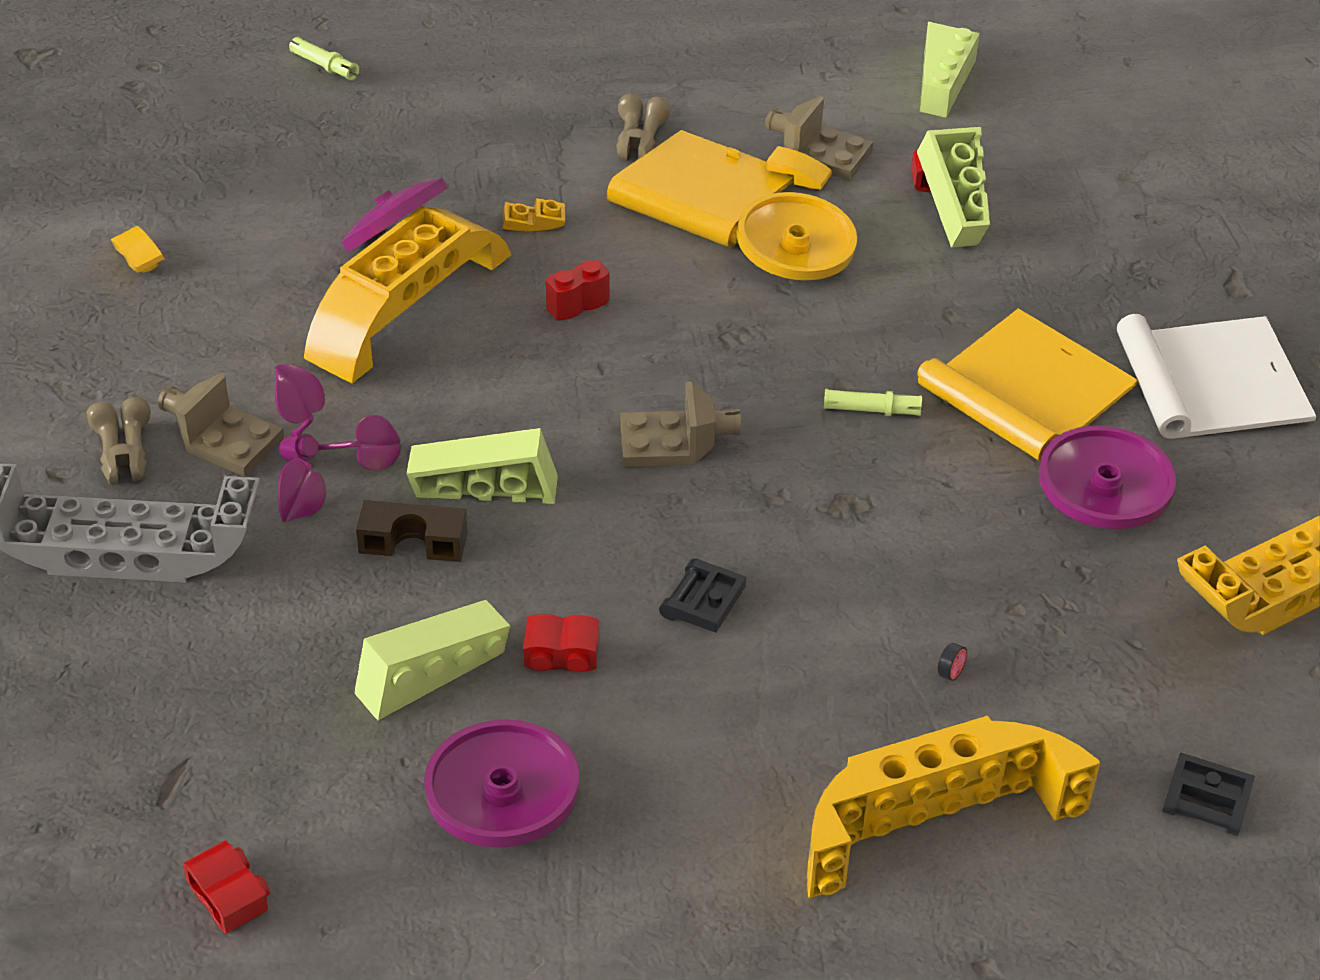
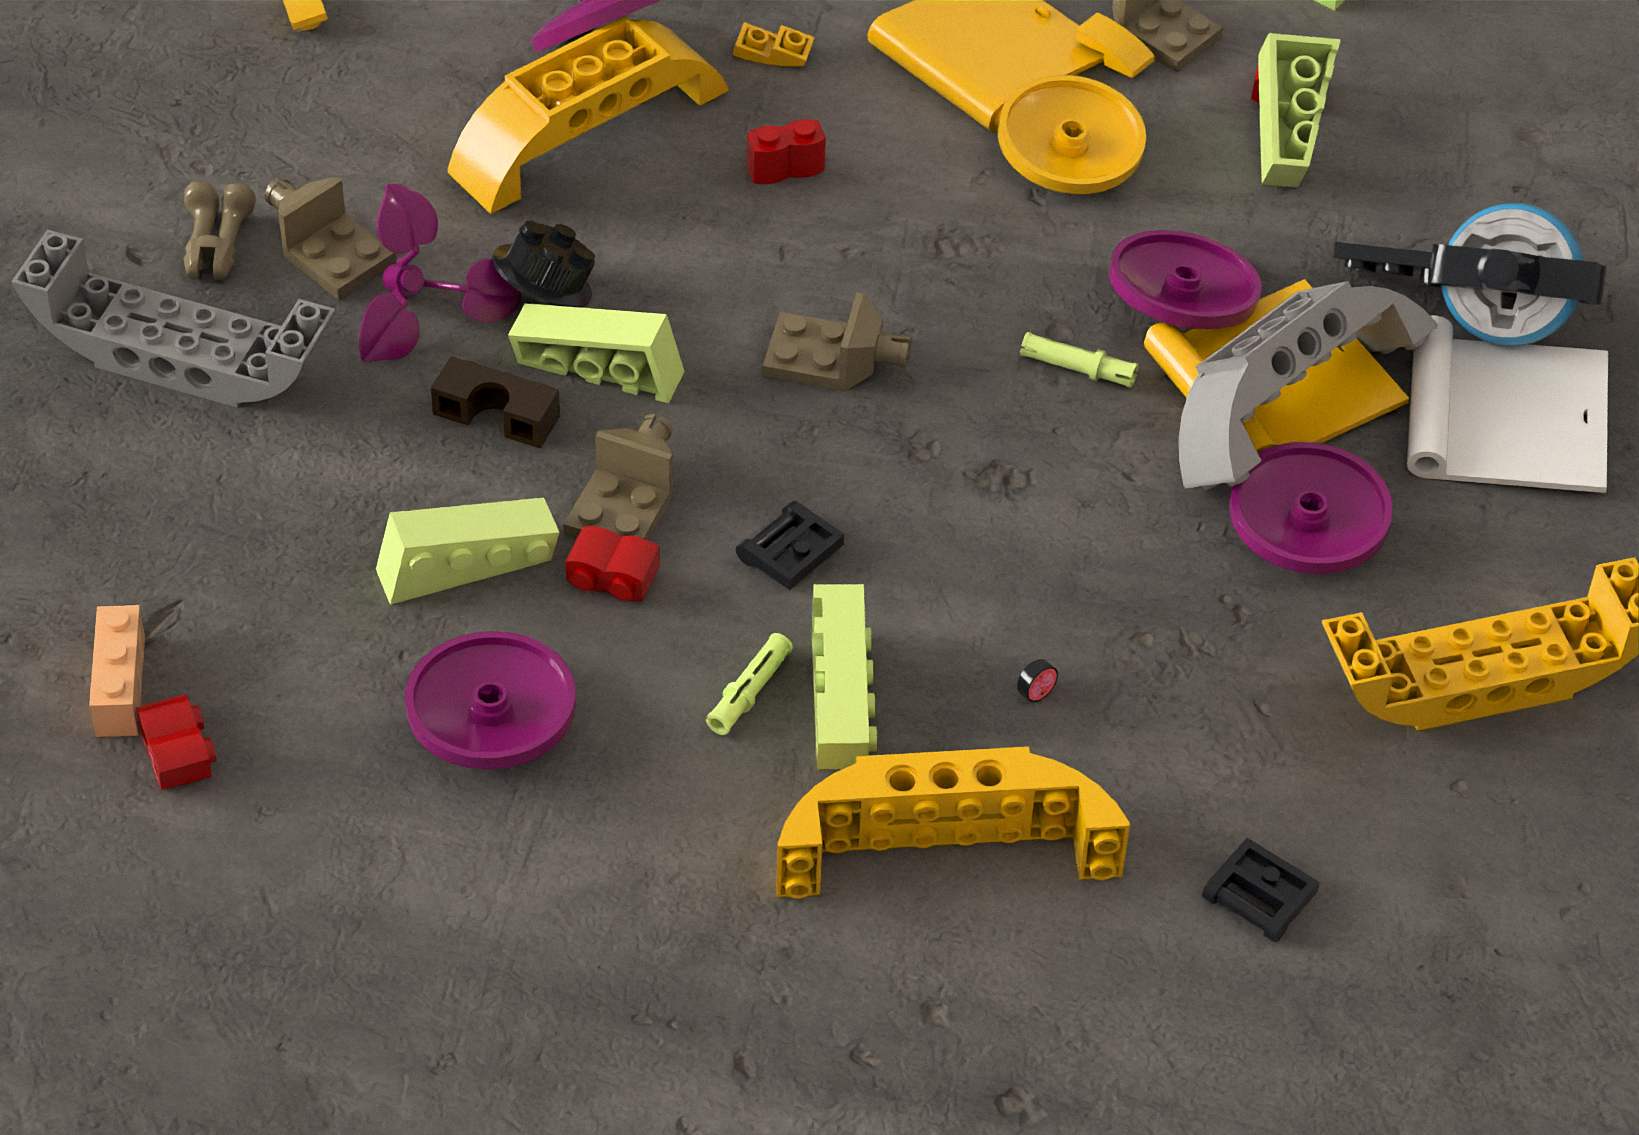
camera: 15 degrees right, 5 degrees up
(153, 834) = (117, 670): none -> light nougat brick
(419, 410) = (547, 265): none -> black piece
(548, 572) = (629, 481): none -> dark tan plate
(706, 747) = (740, 695): none -> yellowish green pin
(794, 695) = (841, 676): none -> yellowish green wedge
(931, 325) = (1185, 279): none -> magenta dish
(1031, 372) = (1276, 354): none -> light grey slope
(1168, 259) = (1496, 254): none -> piece

